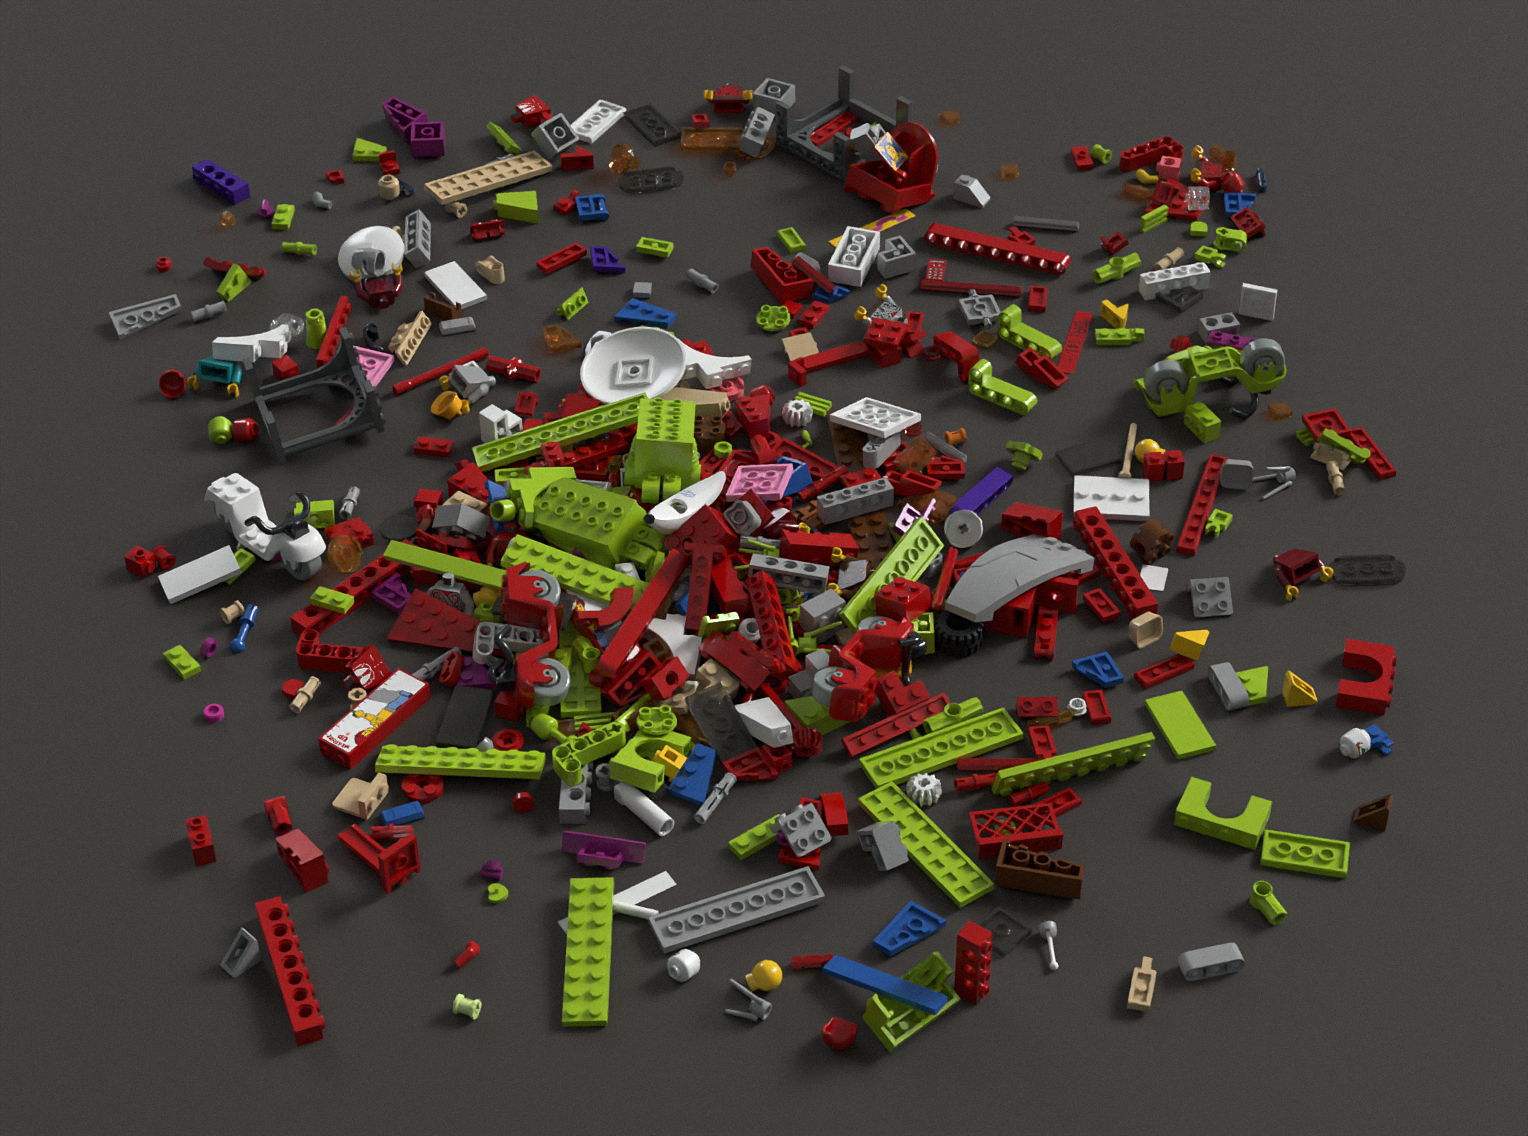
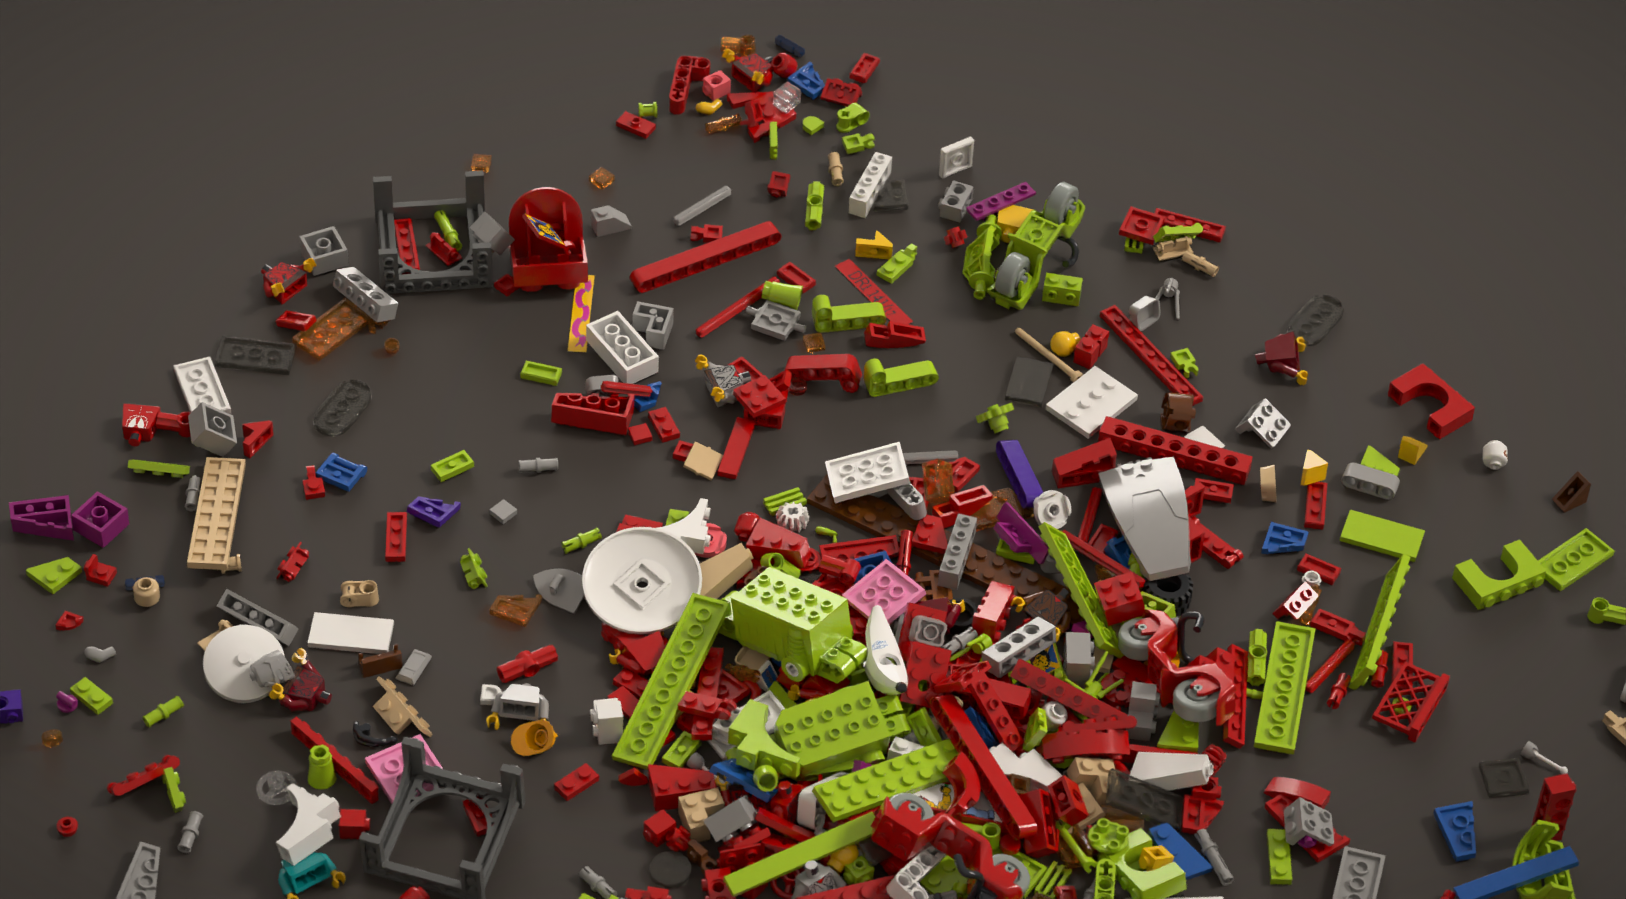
camera: 55 degrees left, 5 degrees up
(408, 384) = (467, 749): red piece -> none
(482, 546) = (783, 825): none -> red tile
(517, 206) = (283, 519): lime slope -> none
(526, 403) = (588, 683): red bracket -> none
(623, 159) = (299, 406): clear orange tile -> none
(639, 311) = (537, 531): blue wing -> none
(736, 430) = (780, 564): none -> lime piece
(773, 318) = (643, 452): lime dish -> none
(797, 372) = (737, 483): red bracket -> none
(885, 844) = (1364, 782): light grey brick -> none
(923, 789) = (1321, 725): white gear -> none
(928, 845) = (1378, 762): lime plate -> none
(936, 269) = (690, 312): red tile -> none
(955, 437) = (926, 442): orange bush -> none
(1005, 295) = (783, 294): none -> lime plant
(1038, 872) = (1470, 717): reddish brown wedge -> none
(1280, 410) = (1087, 237): clear orange tile -> none
(1290, 221) = (864, 68): none -> red plate
(1379, 739) = (1508, 440): blue plate -> none

